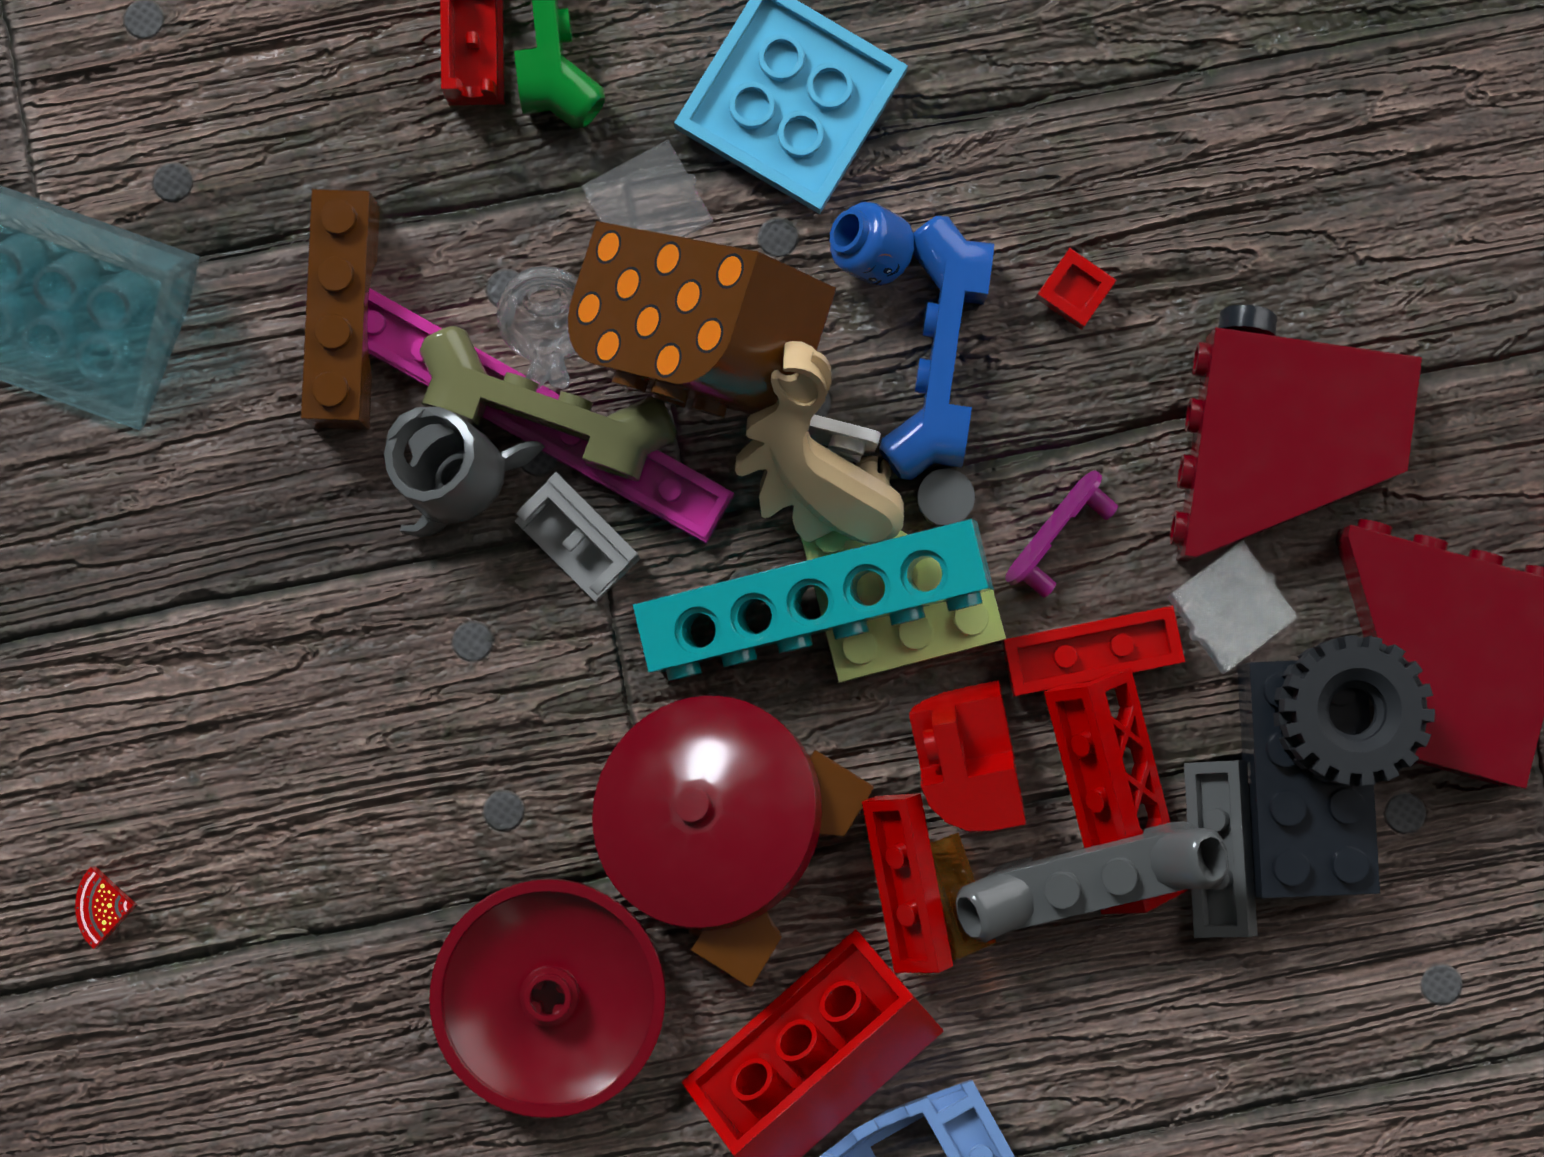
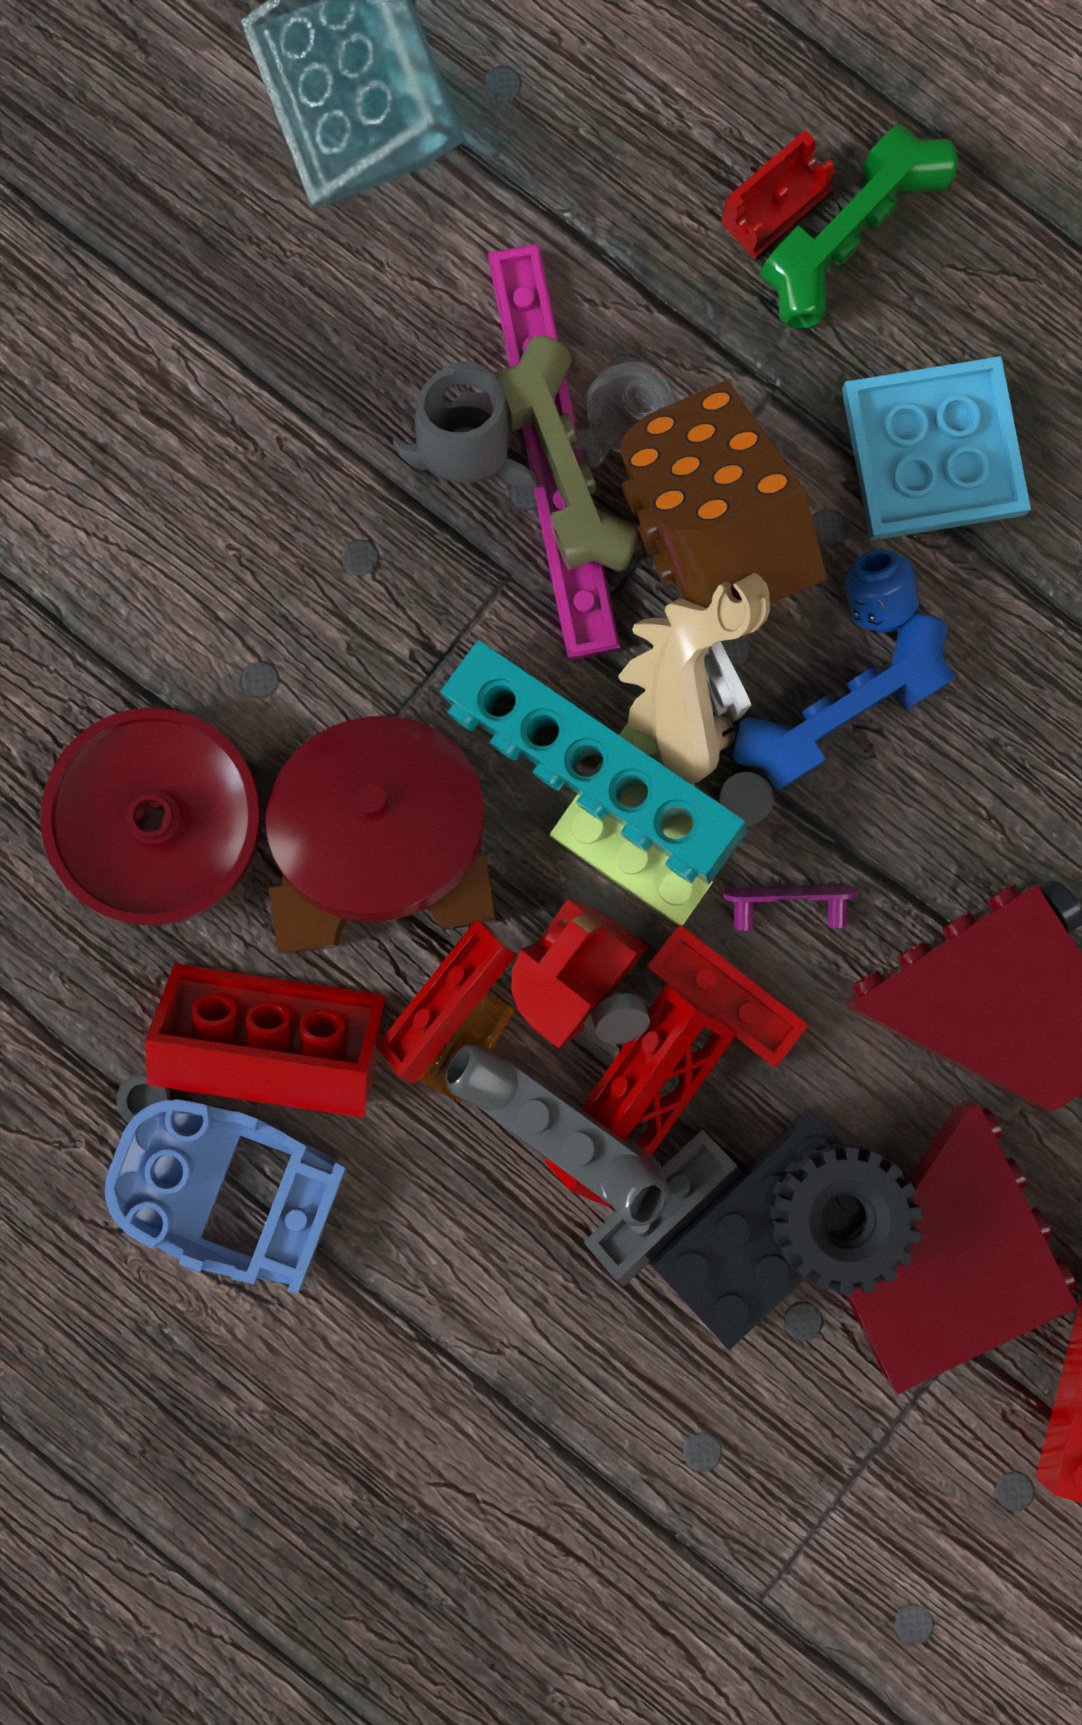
camera: 50 degrees right, 0 degrees up
(338, 285) = (545, 235): reddish brown arch -> none
(576, 537) = (493, 564): light grey hinge -> none
(650, 194) = (783, 408): clear piece -> none
(1041, 753) = (620, 1018): none -> dark grey tile
(1075, 288) = (975, 764): red plate -> none
(1232, 607) = (844, 1069): clear piece -> none

